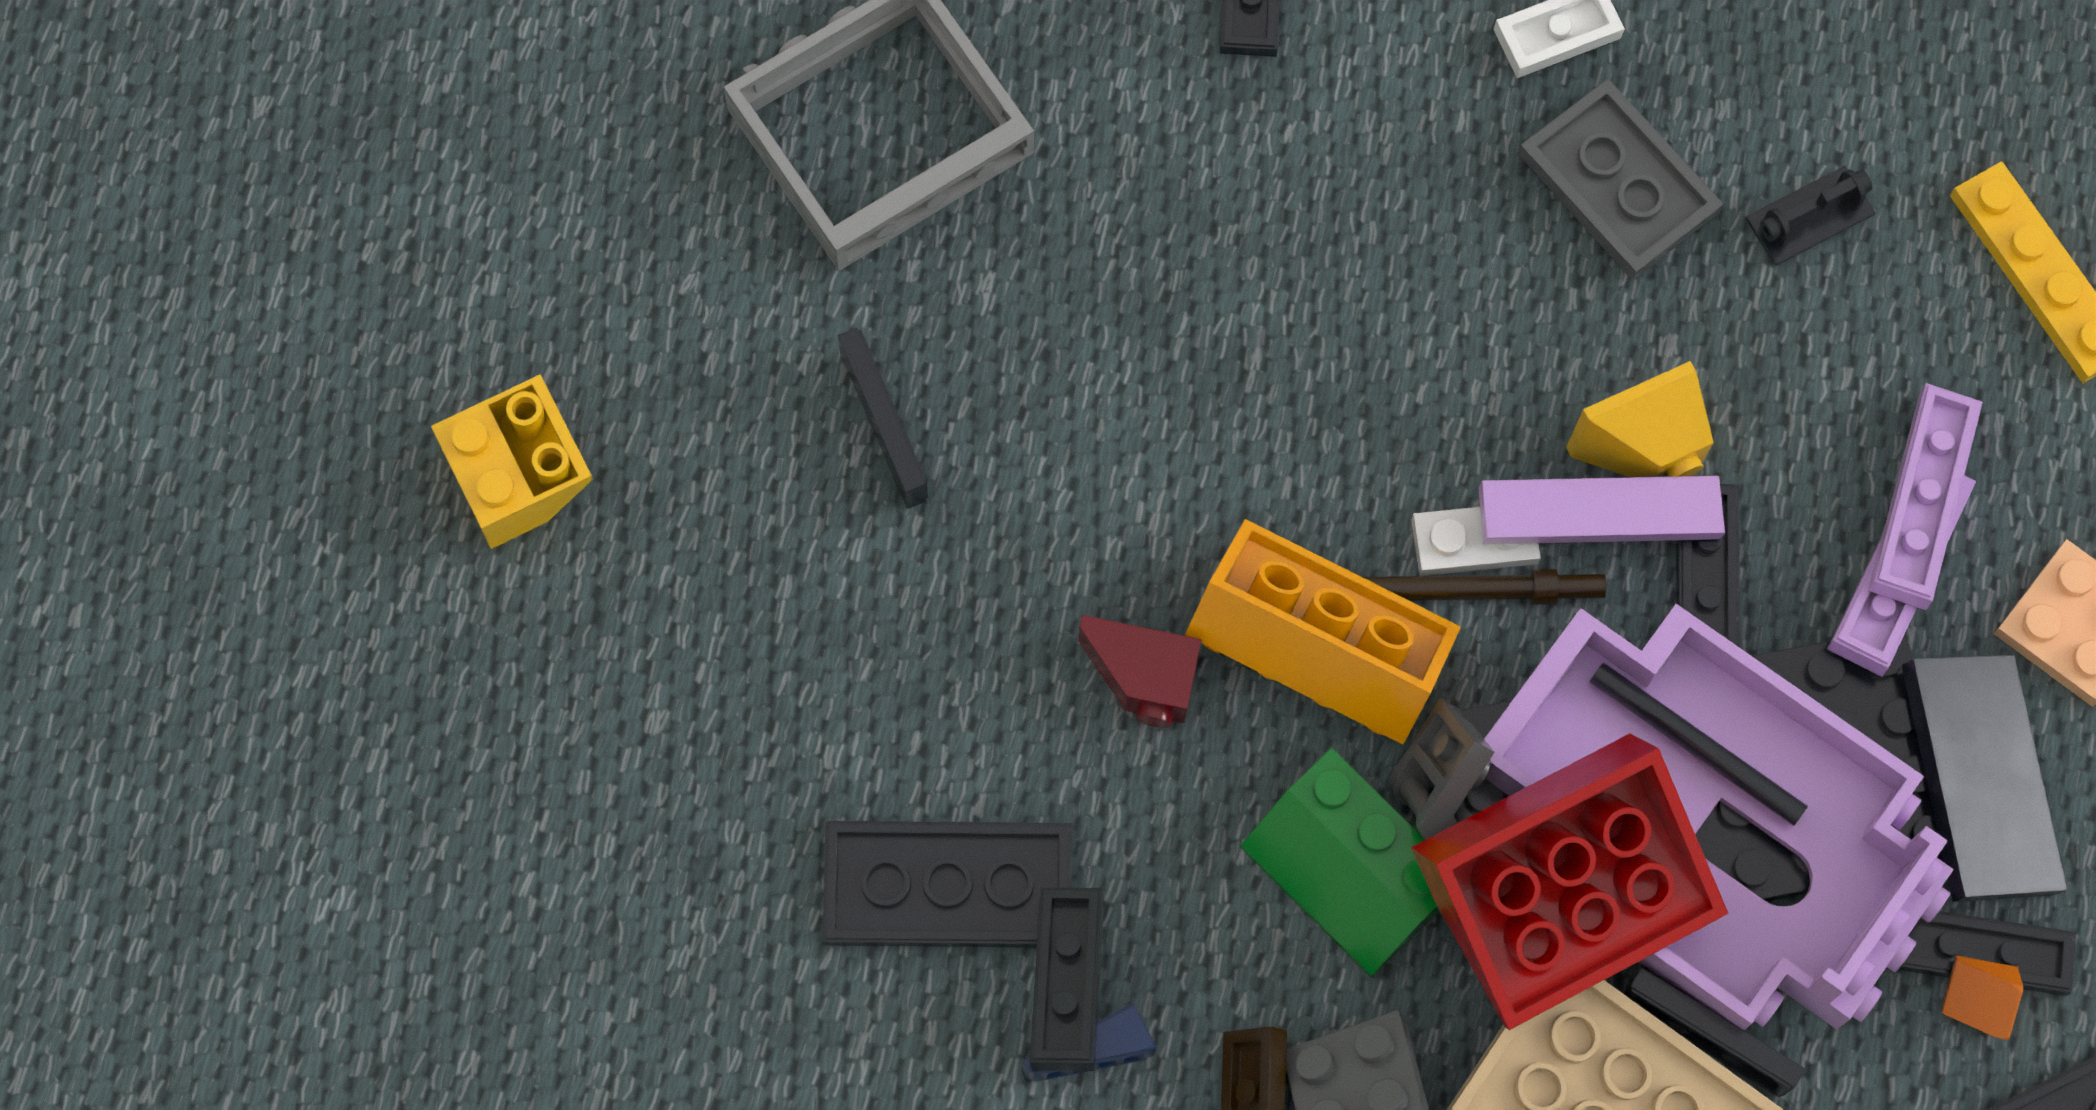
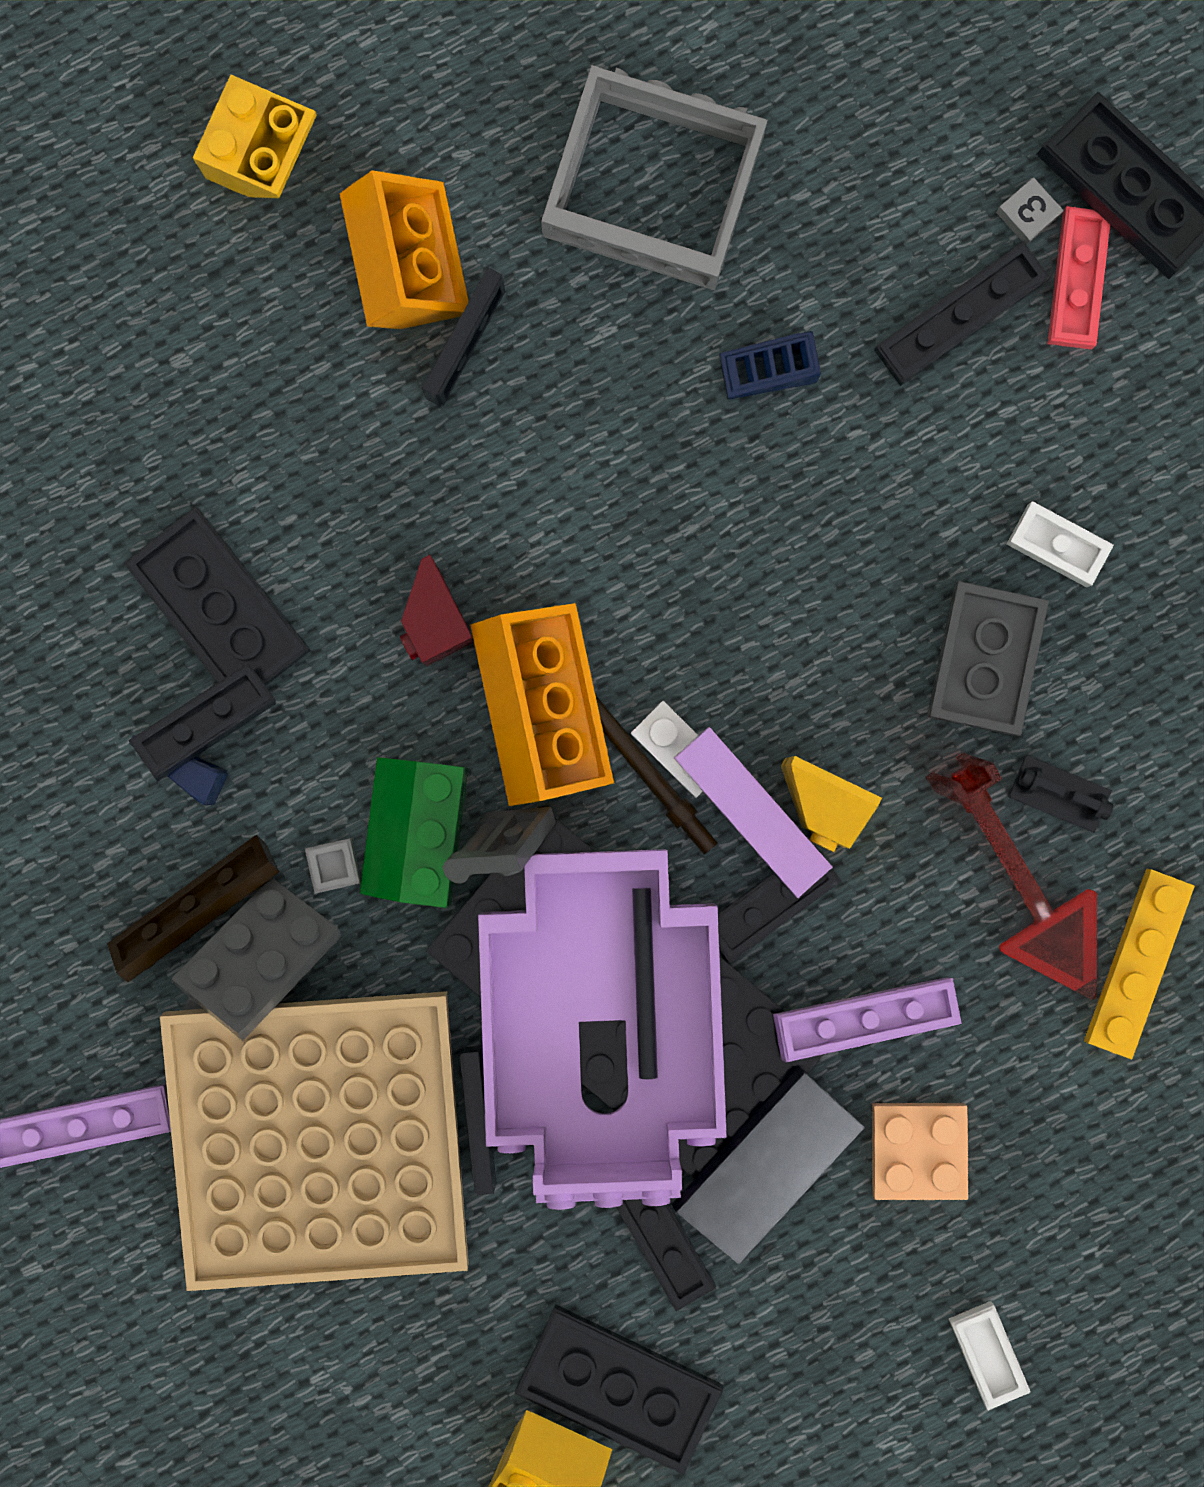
camera: 55 degrees right, 15 degrees up
(743, 409) = (403, 250): none -> light orange slope
(1178, 113) = (785, 345): none -> dark blue slope
(1320, 979) = (333, 865): none -> light grey tile
(1571, 879) = (482, 974): red slope -> none
(1925, 496) = (922, 1002): lavender tile -> none
(1960, 325) = (1059, 940): none -> clear red piece
(1983, 995) = (630, 1263): orange slope -> none

